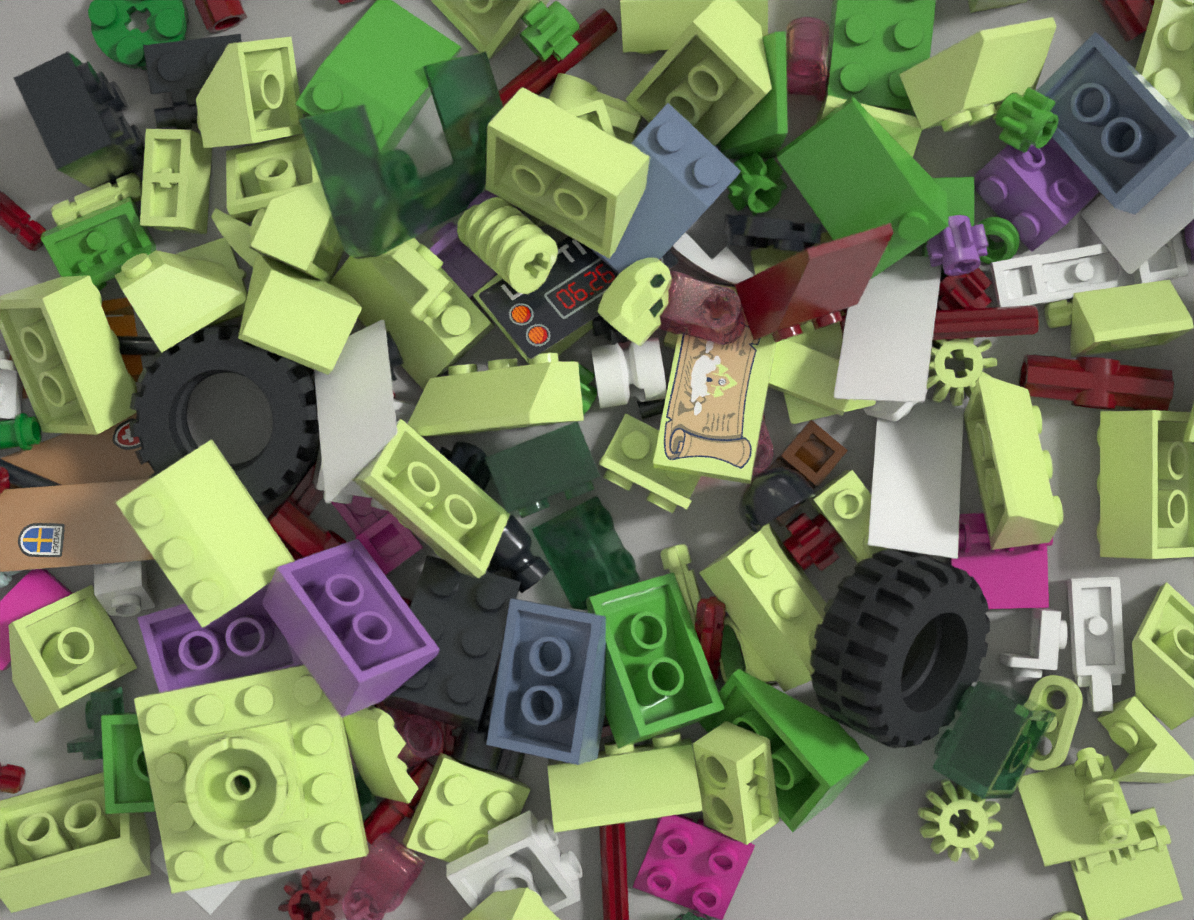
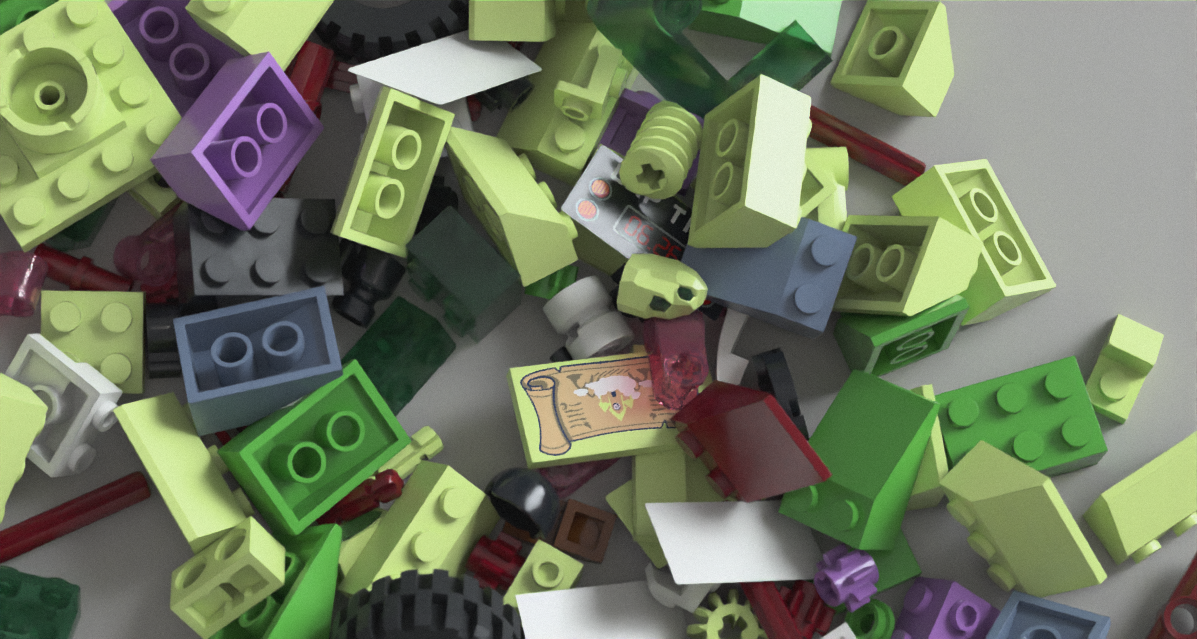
camera: 65 degrees right, 15 degrees down
(375, 752) = (125, 221): yellowish green slope -> none
(379, 533) = (334, 153): dark pink slope -> none
(549, 31) = (880, 118): bright green gear -> none
(631, 461) = (490, 393): yellowish green bracket -> none
(693, 865) = (127, 579): dark pink hinge -> none
(757, 184) = (821, 368): bright green gear -> none
(807, 57) = (961, 360): clear pink piece -> none
(1027, 120) = (996, 589): bright green gear -> none

